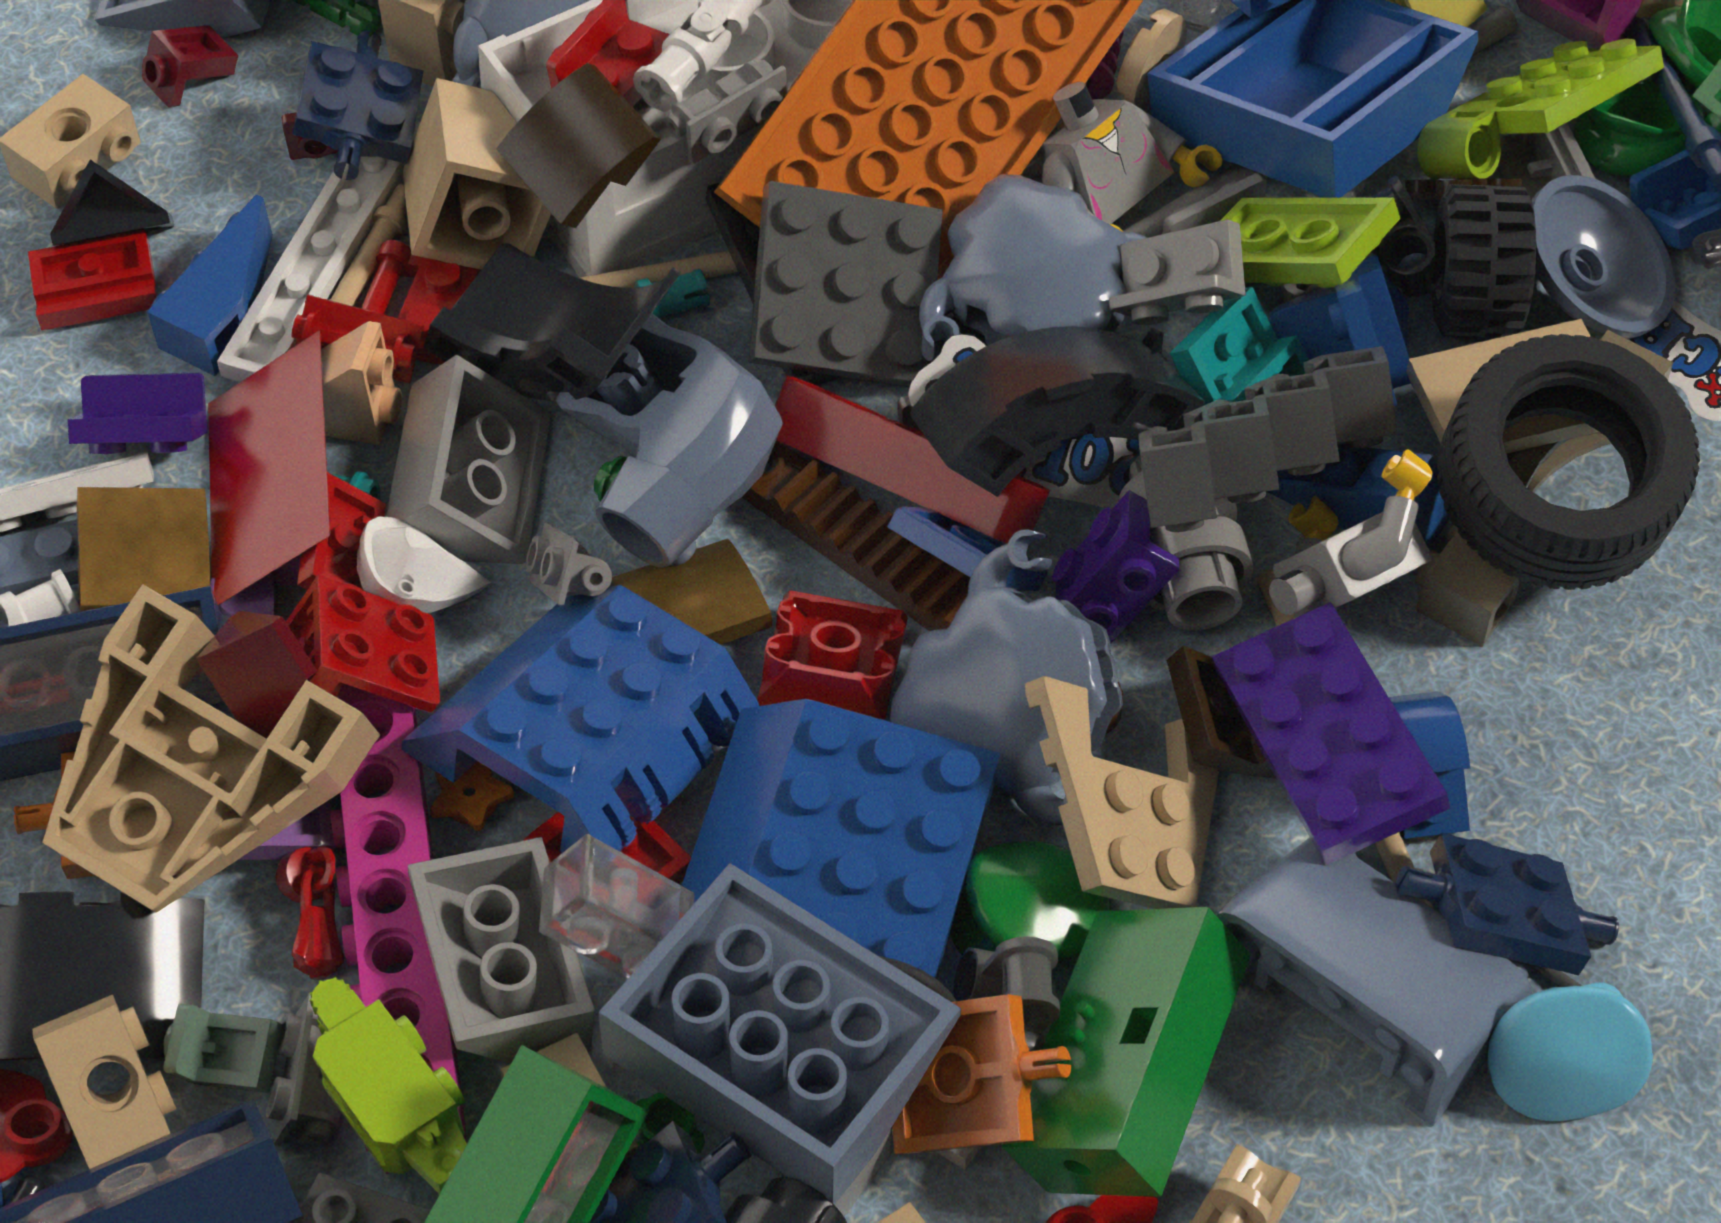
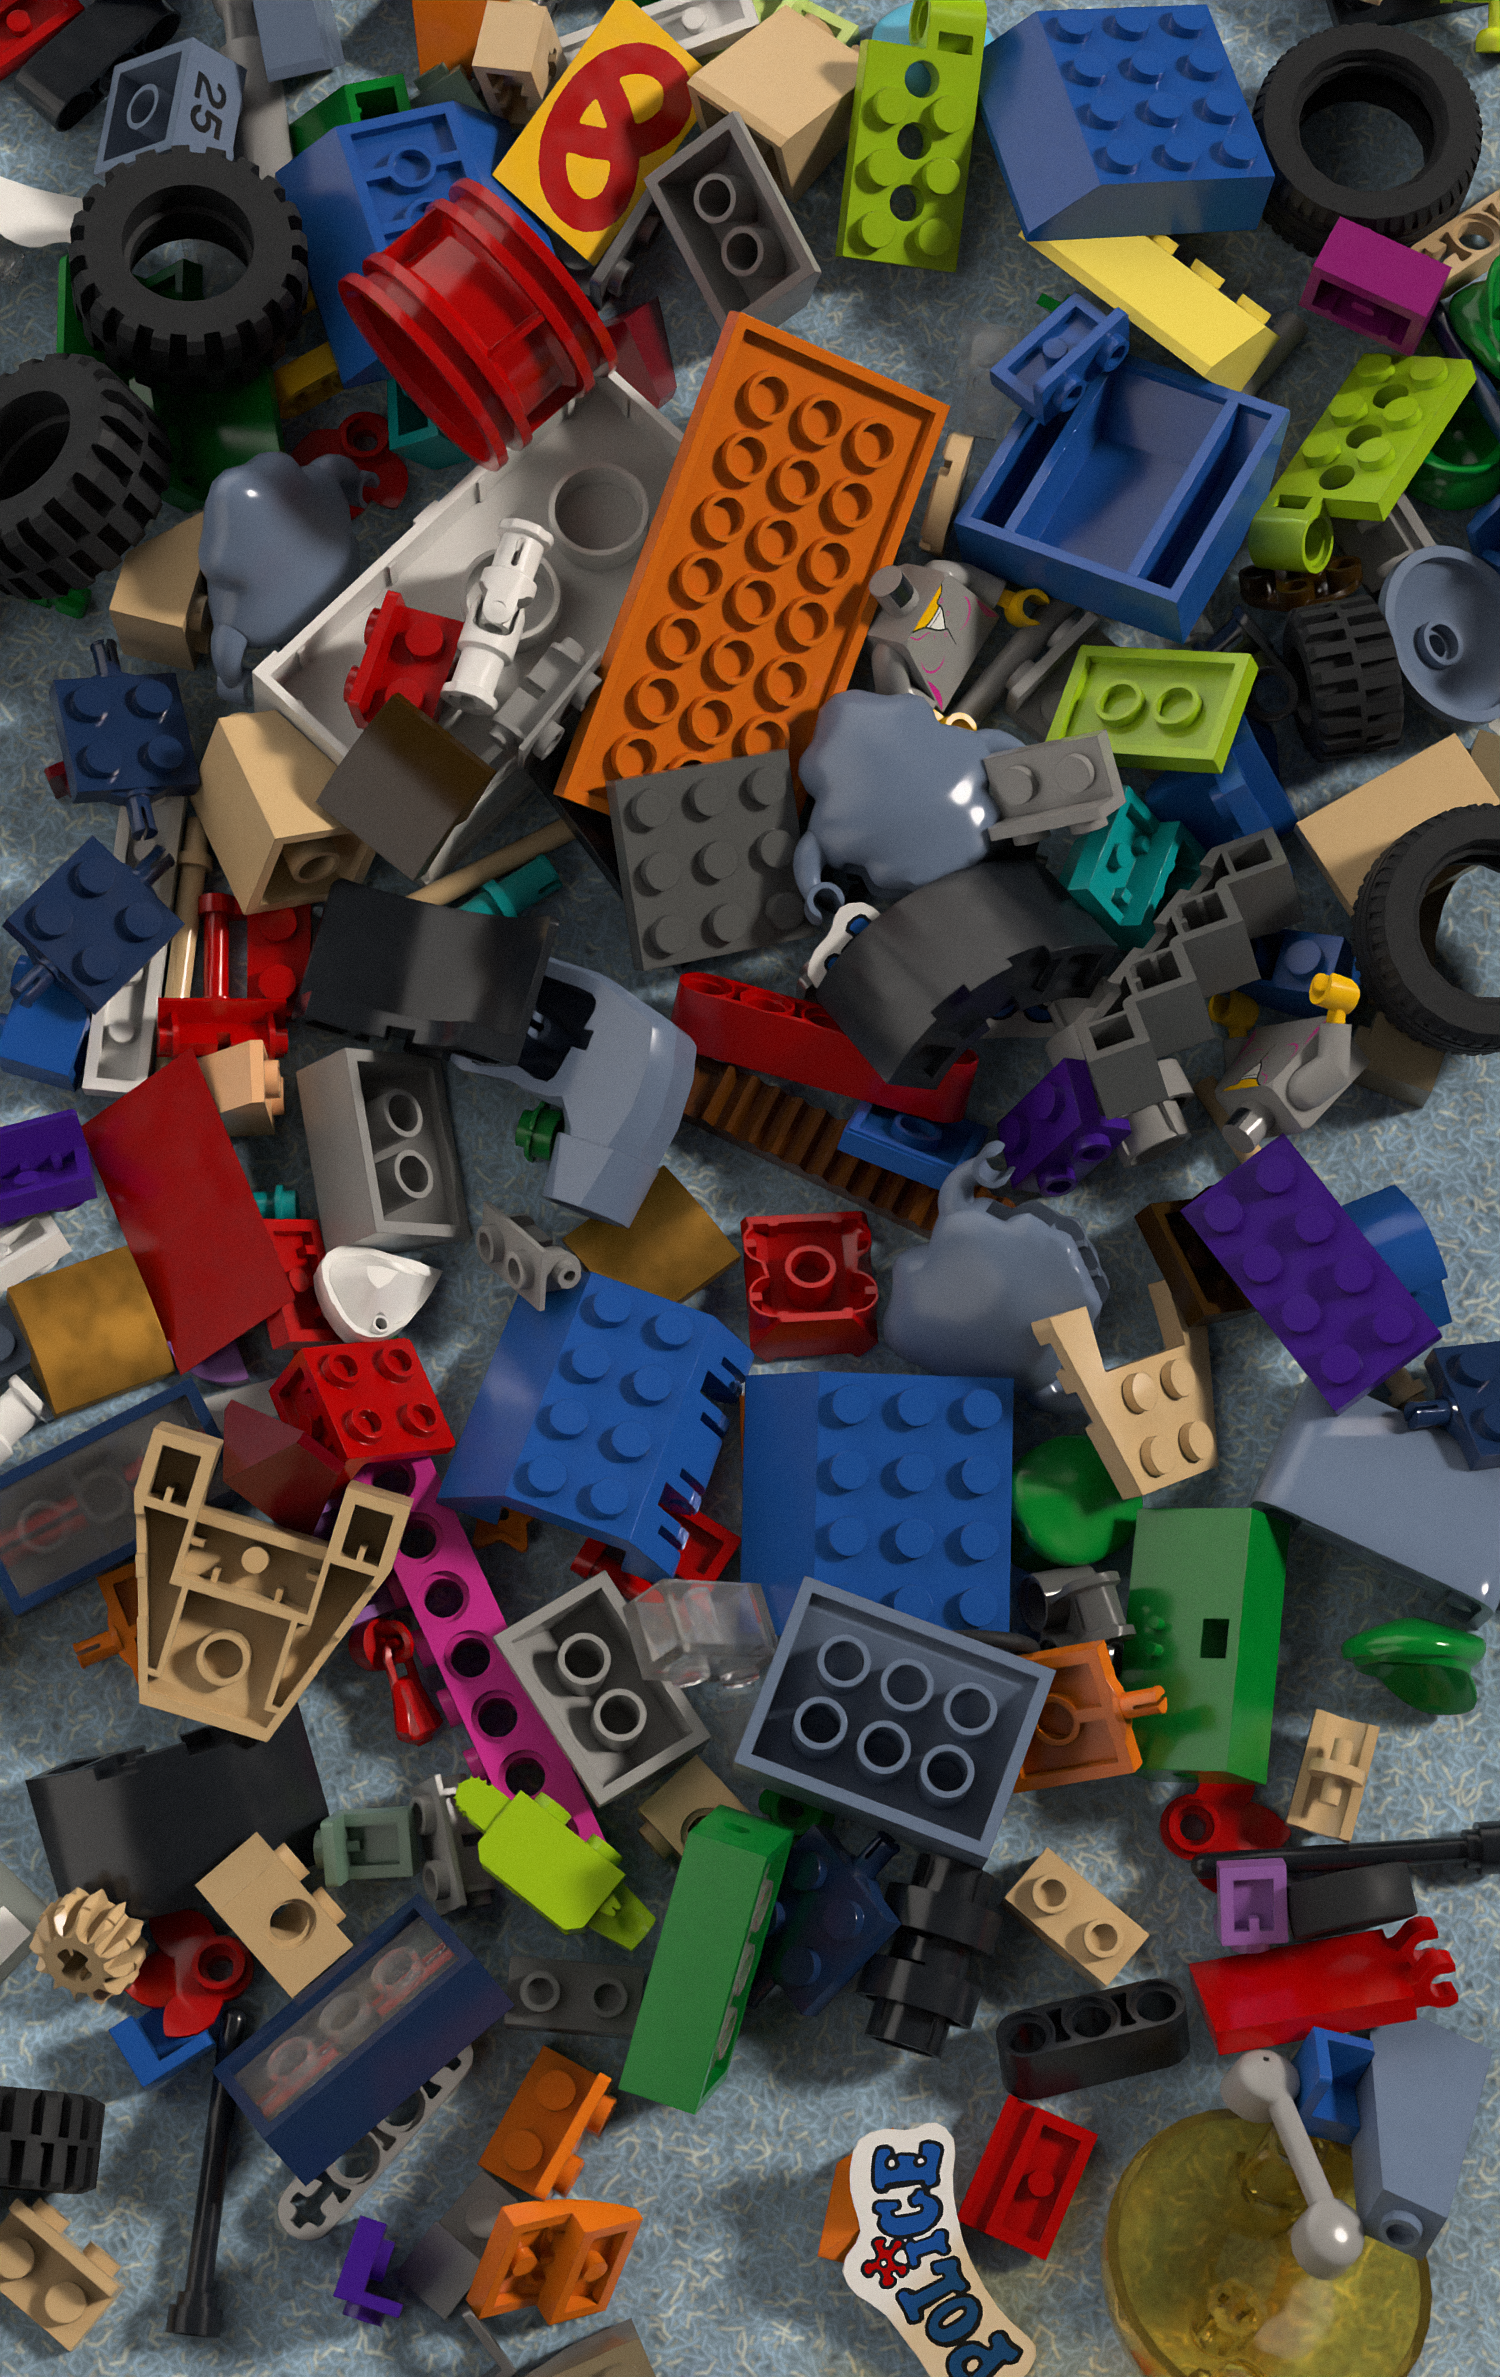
camera: 20 degrees left, 20 degrees up
(272, 229) = (92, 925): none -> dark blue plate
(1357, 1123) = (1420, 1663): none -> green piece

